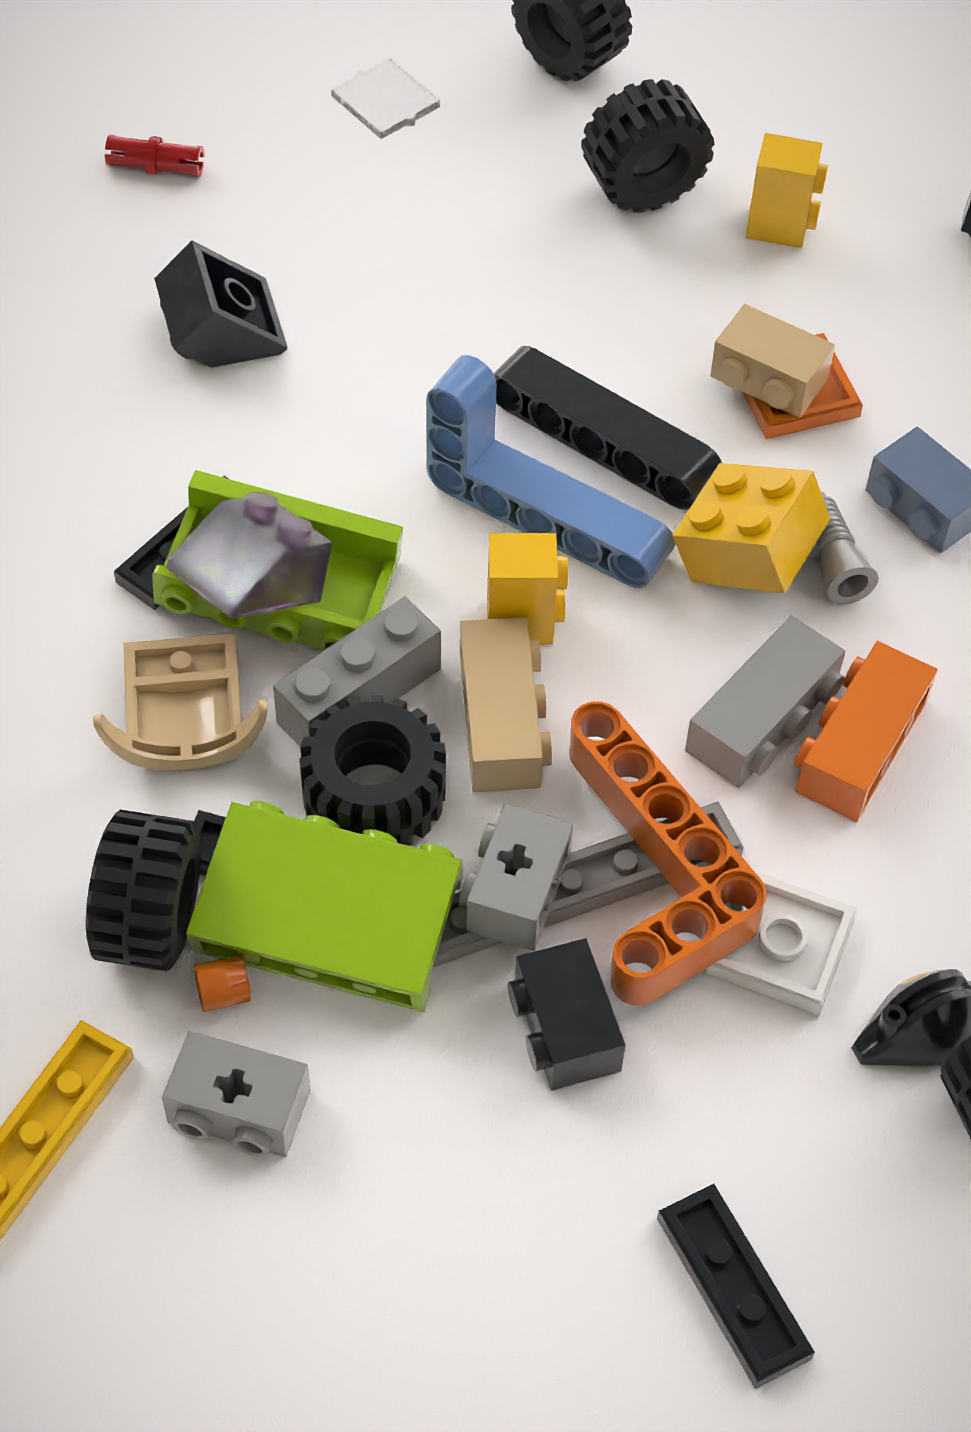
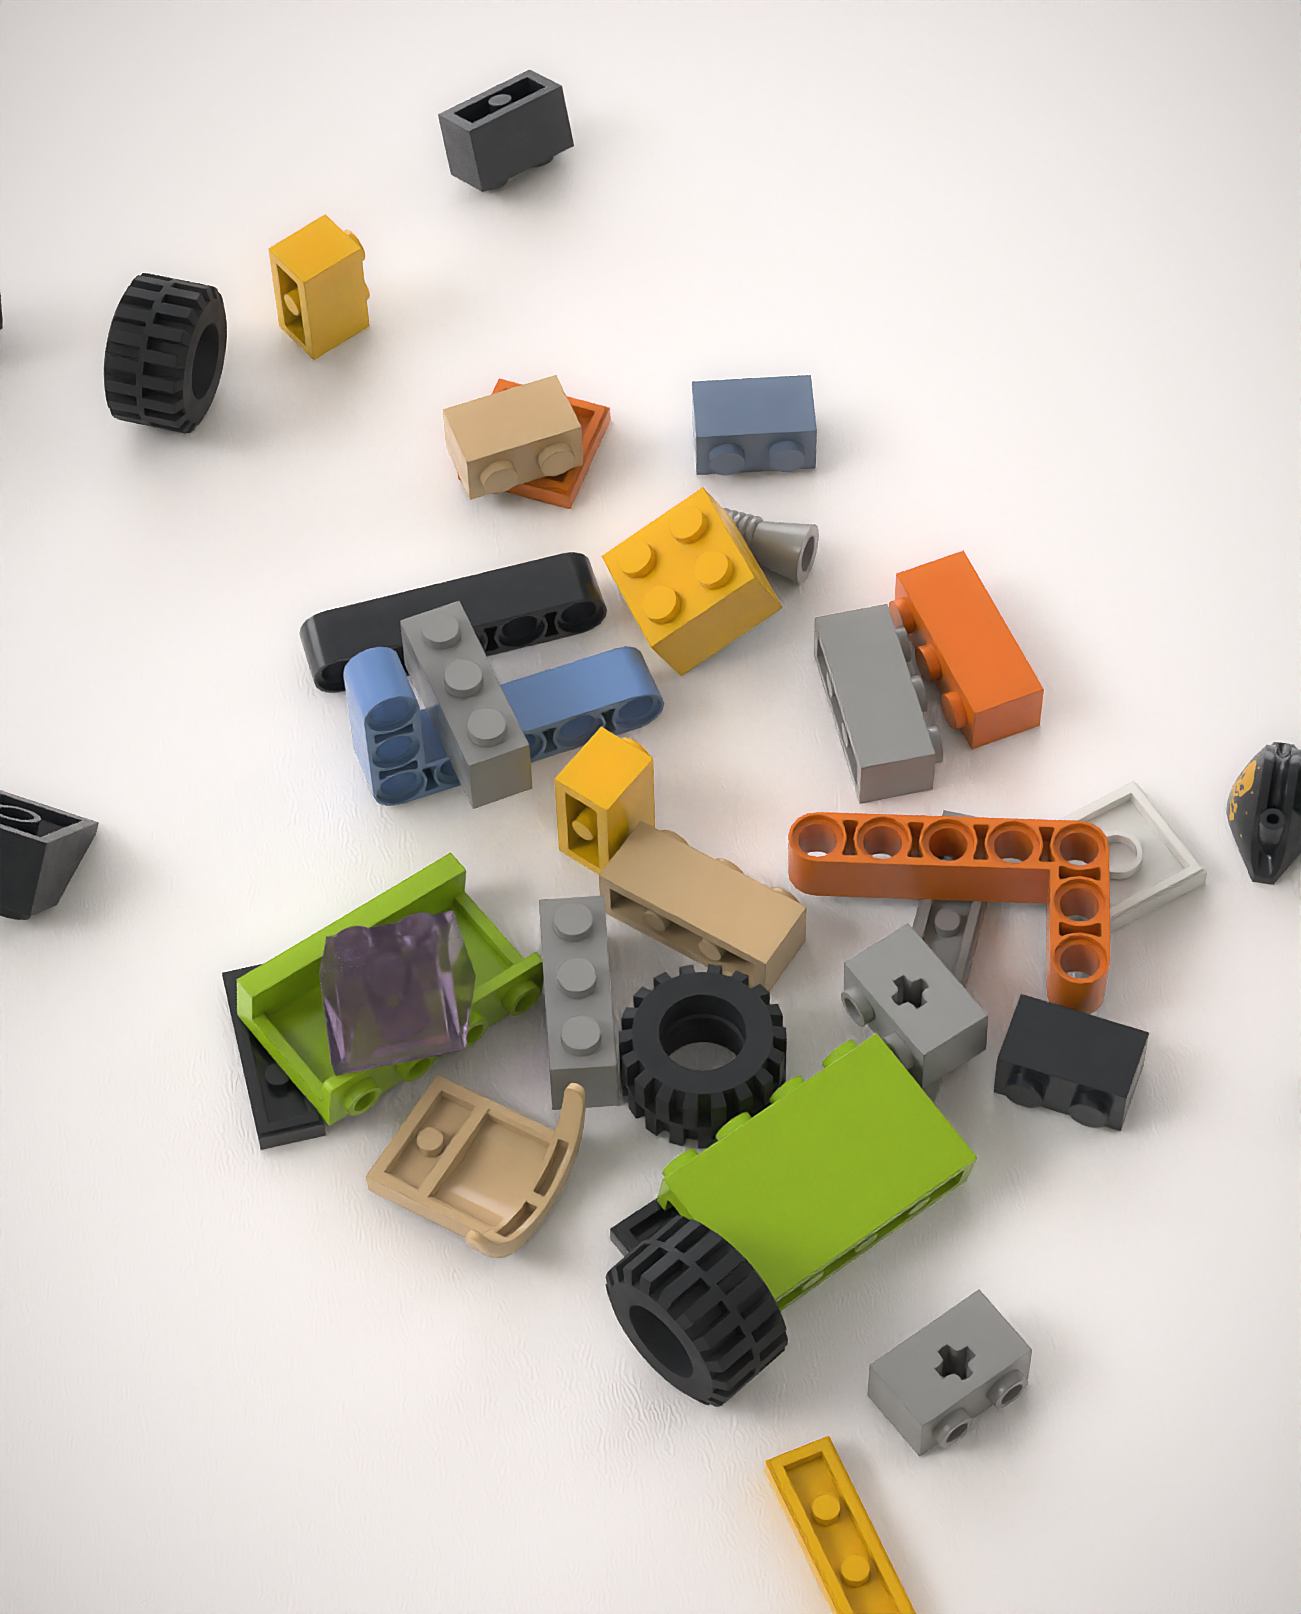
camera: 50 degrees left, 0 degrees up
(222, 983) = (819, 1320): orange hose -> none
(517, 456) = (466, 705): none -> light grey brick

